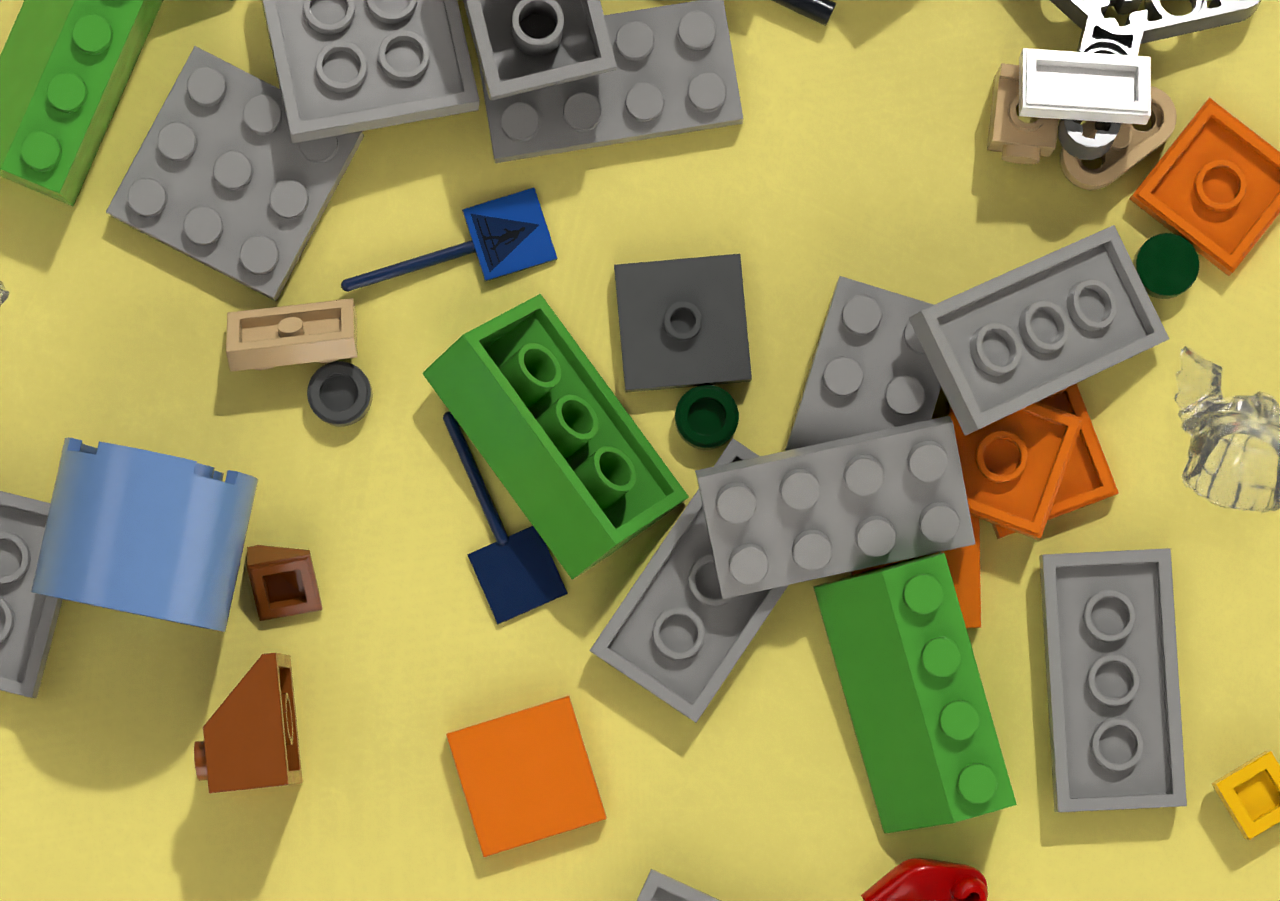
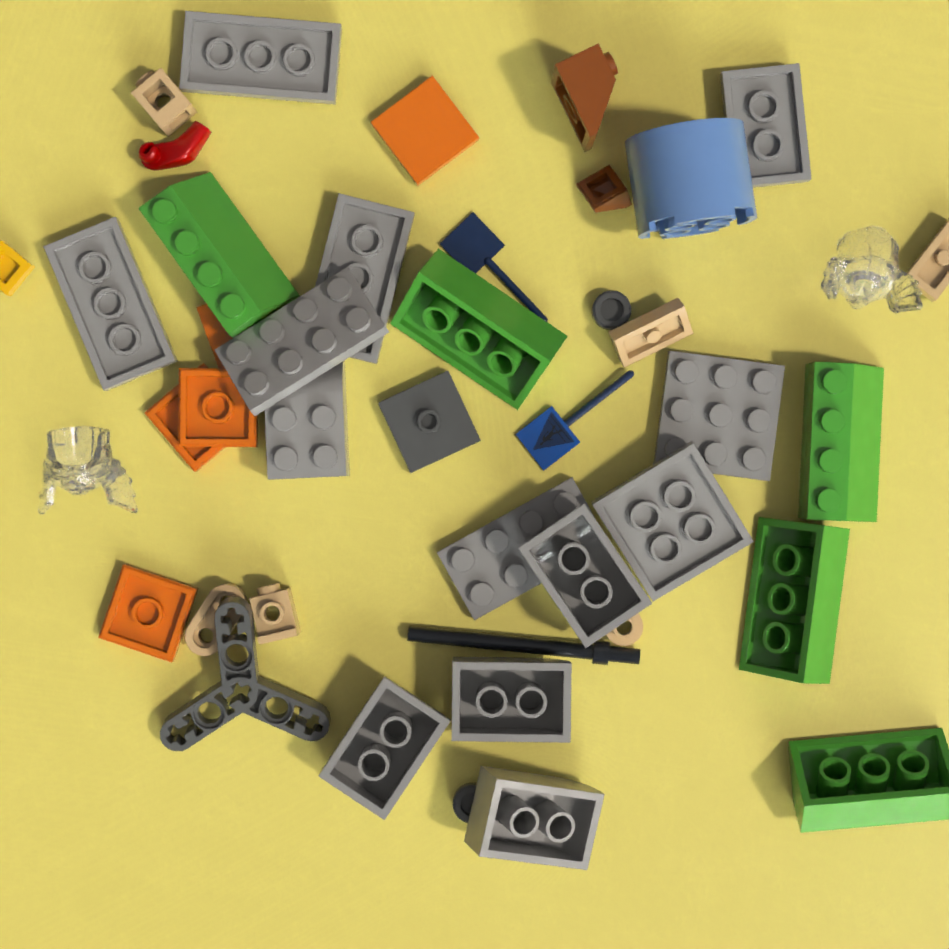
camera: 165 degrees right, 5 degrees up
(706, 417) = (396, 372): dark green tile -> none
(1038, 329) = (221, 485): light grey plate -> none
(1084, 86) = (243, 637): white tile -> none
(1166, 265) = (163, 555): dark green tile -> none

